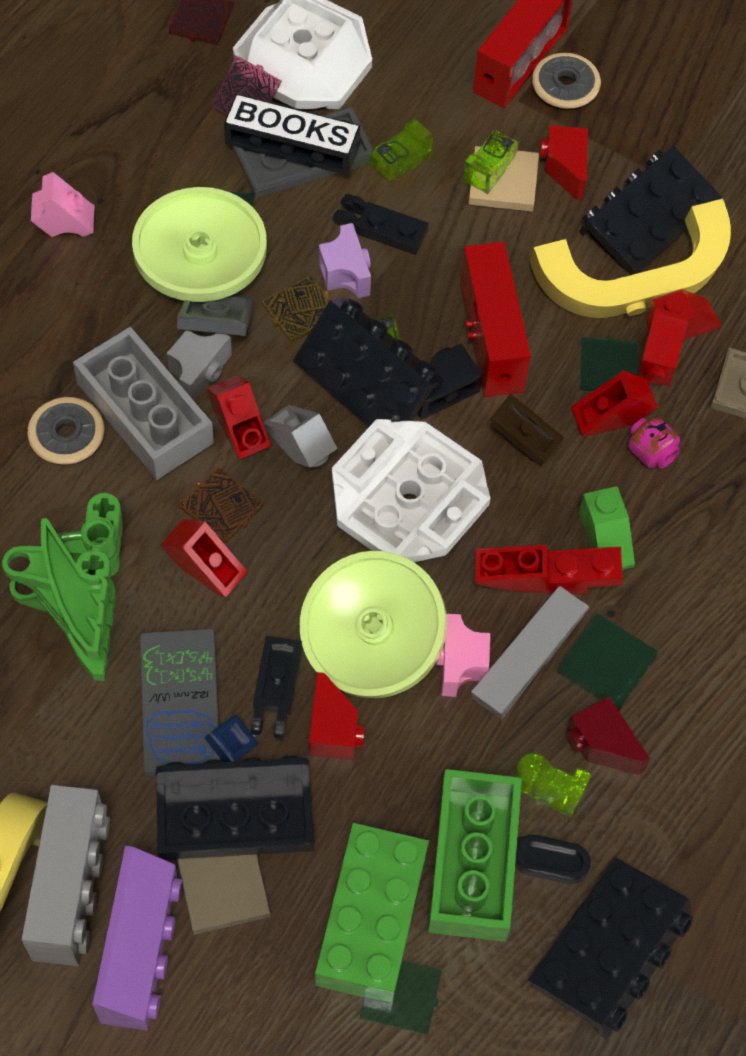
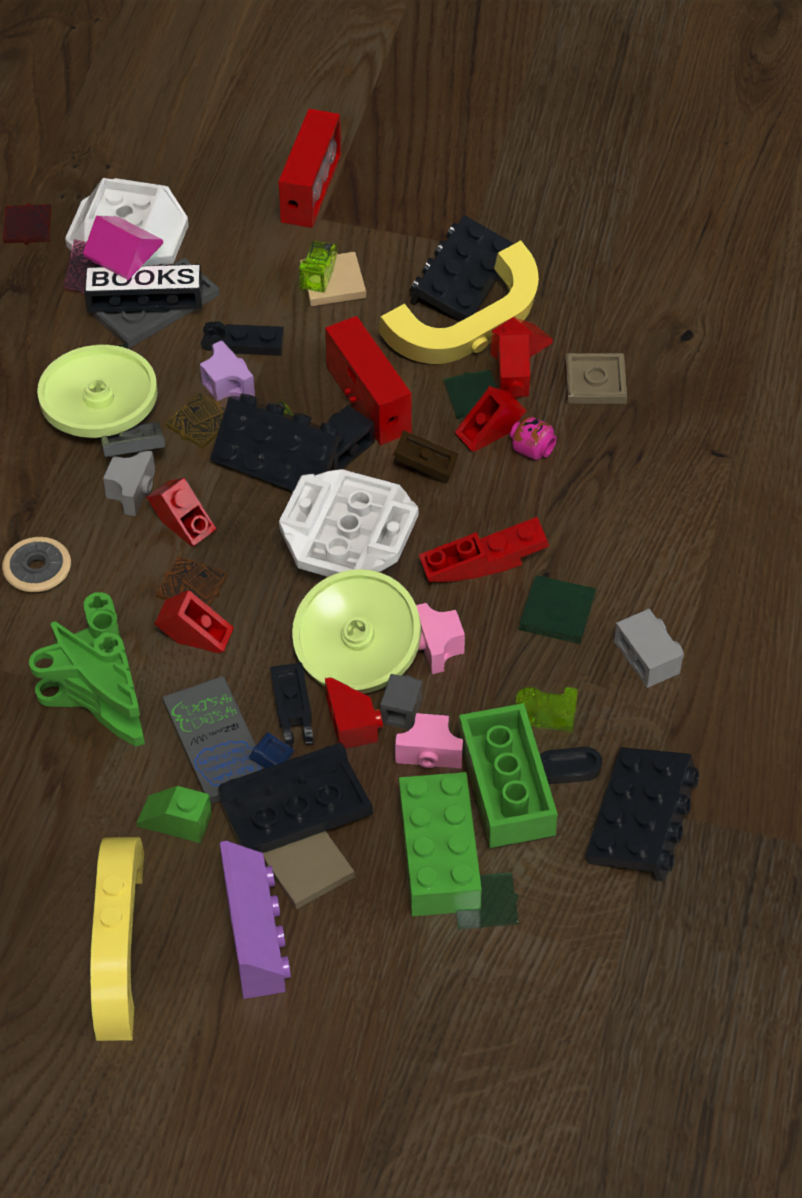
camera: 15 degrees left, 10 degrees down
(65, 876) = (176, 888): light grey brick -> none
(102, 771) = (177, 813): none -> bright green slope
(143, 403) = (97, 522): light grey brick -> none
(280, 79) = (120, 245): none -> dark pink slope
(301, 435) = (241, 511): light grey slope -> none
(394, 722) = (401, 701): none -> dark grey brick
(403, 150) = (241, 278): clear neon green leg -> none
(405, 785) = (429, 743): none -> bright pink brick
(529, 652) = (491, 620): light grey slope -> none
(564, 96) = (371, 198): dark grey wheel -> none
(566, 158) = (380, 249): red slope -> none
(606, 738) = (580, 662): dark red slope -> none
(607, 522) = (516, 502): bright green slope -> none
(692, 745) = (648, 647): none -> light grey brick

